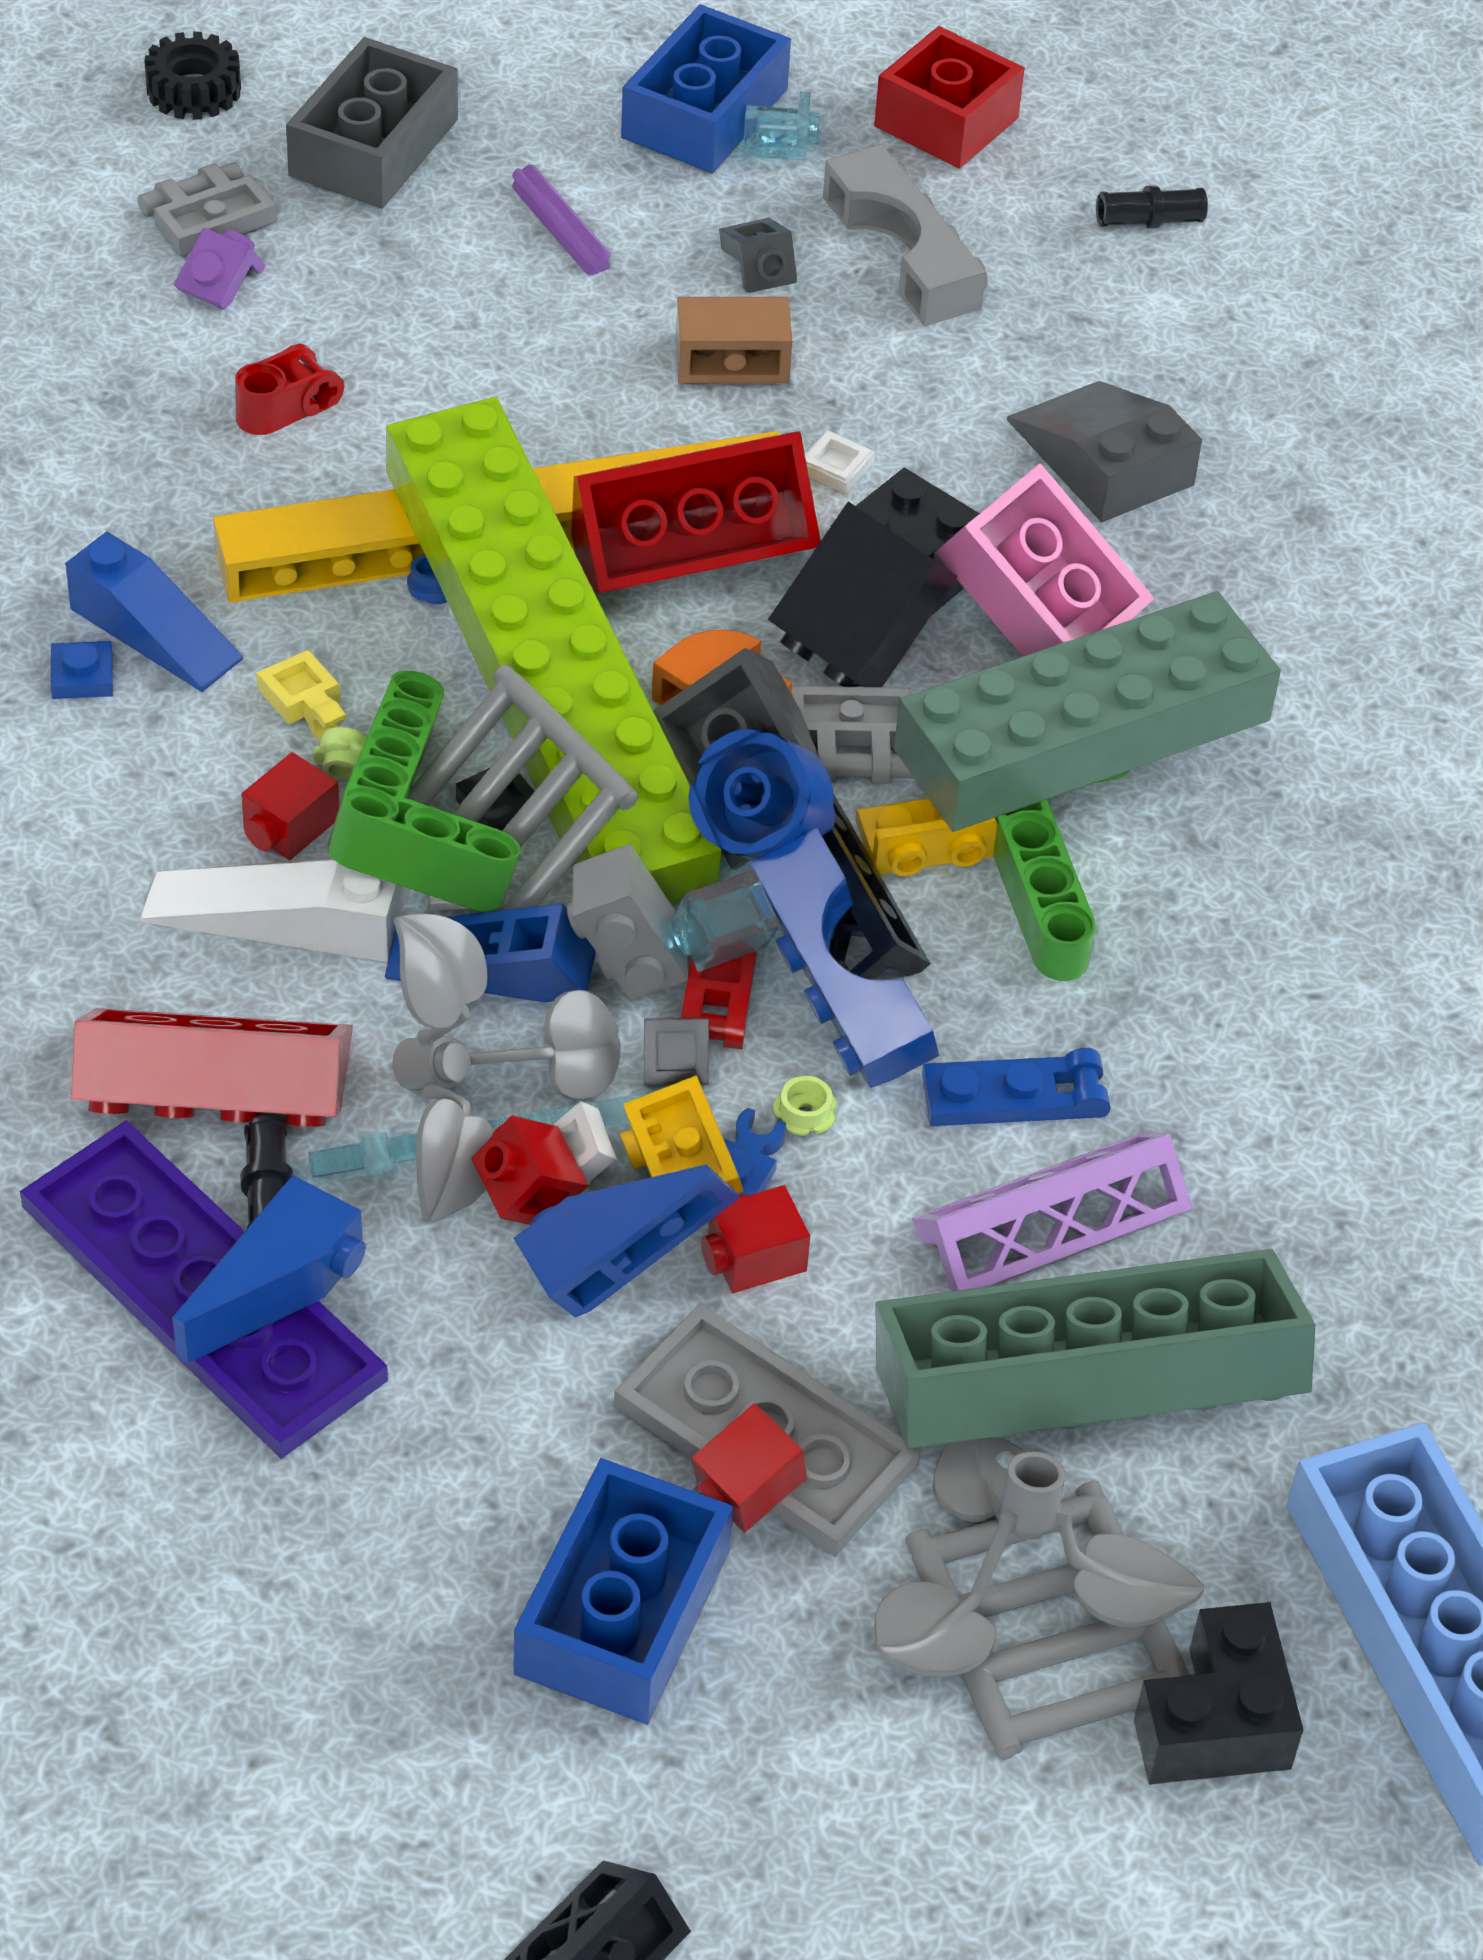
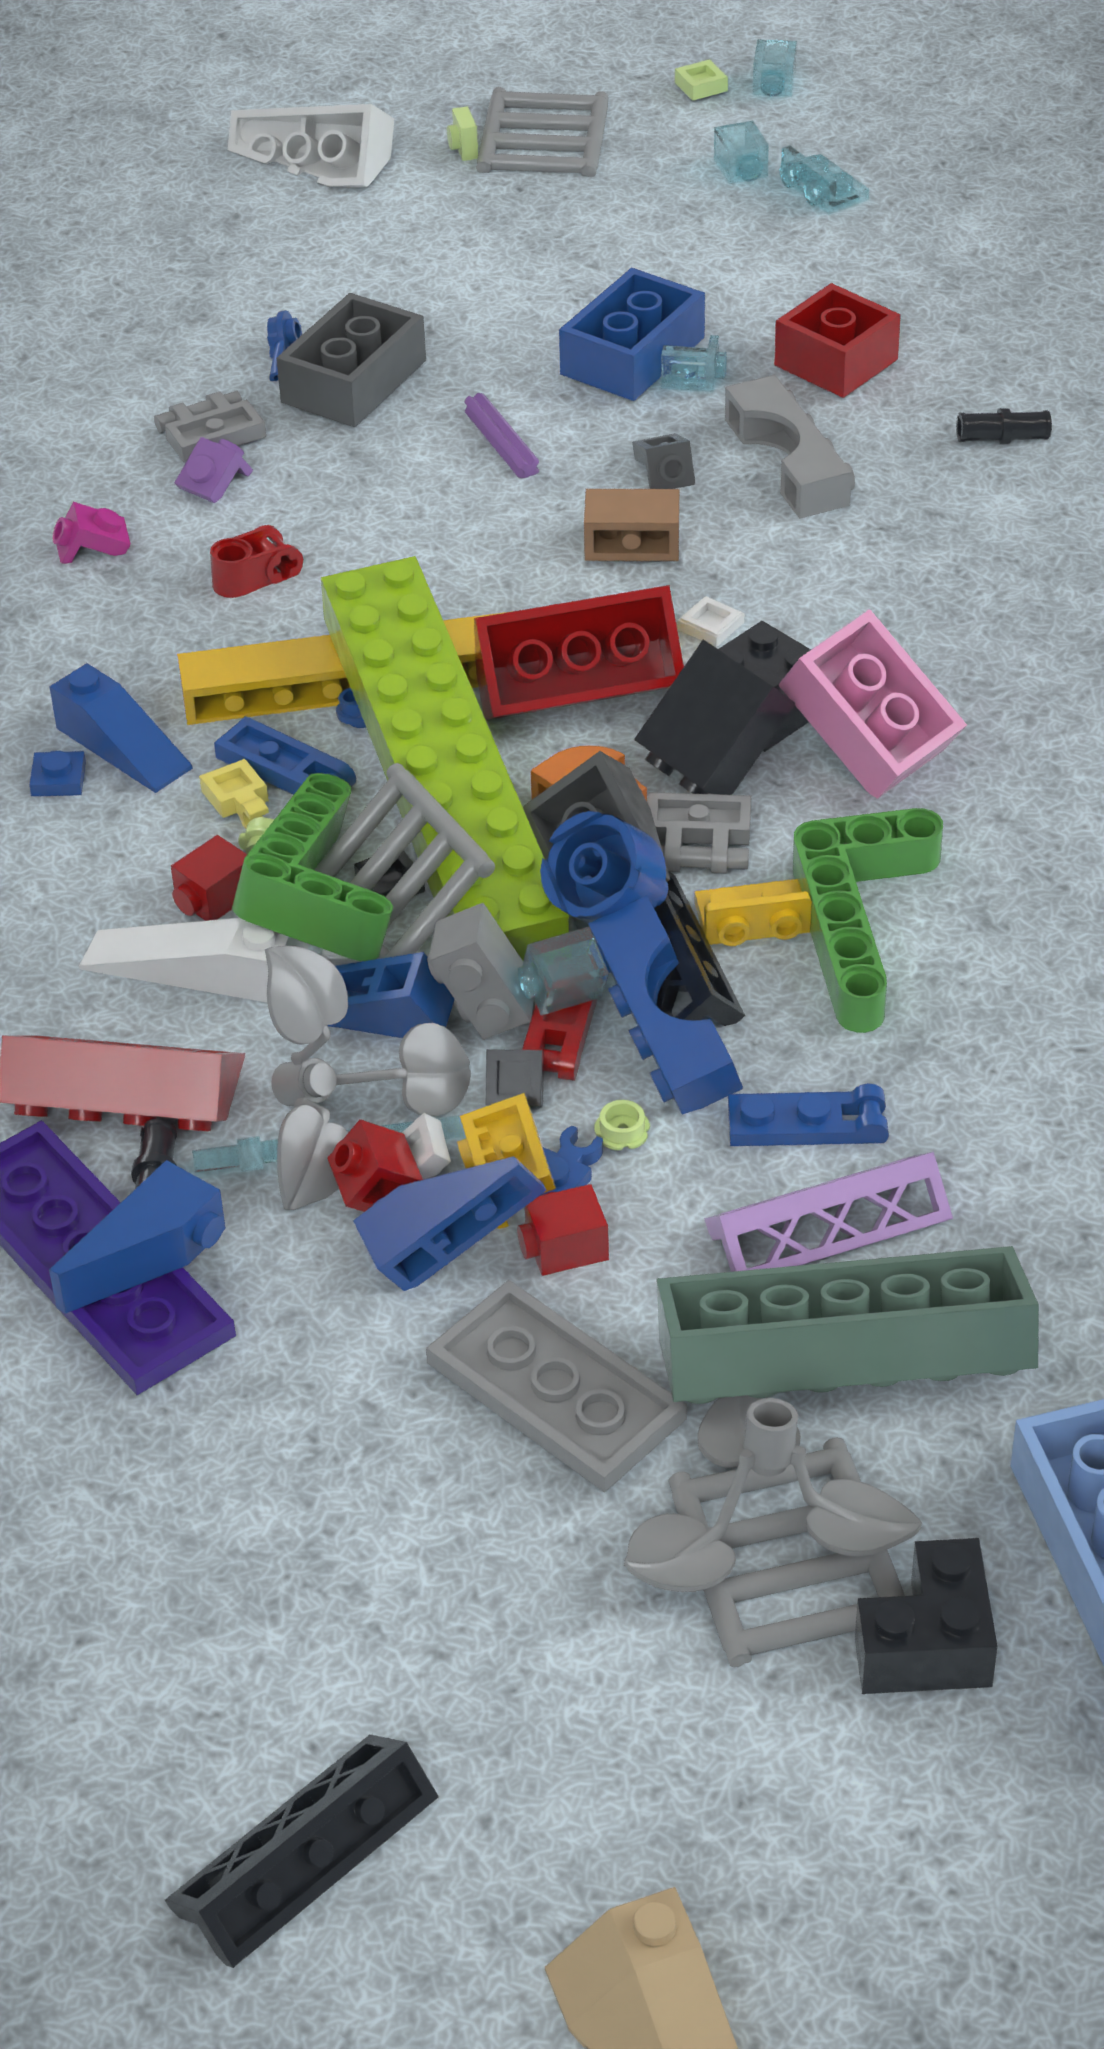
camera: 10 degrees right, 5 degrees down
(82, 348) = (90, 528): none -> dark pink bracket
(192, 95) = (211, 326): black tyre -> none
(281, 87) = (282, 332): none -> blue plate
(348, 646) = (277, 756): none -> blue plate
(622, 1591) = (410, 1509): blue brick -> none
(749, 1467) = (529, 1412): red brick -> none
(1085, 710) = (894, 808): sand green brick -> none
(1112, 446) = (950, 612): dark grey slope -> none

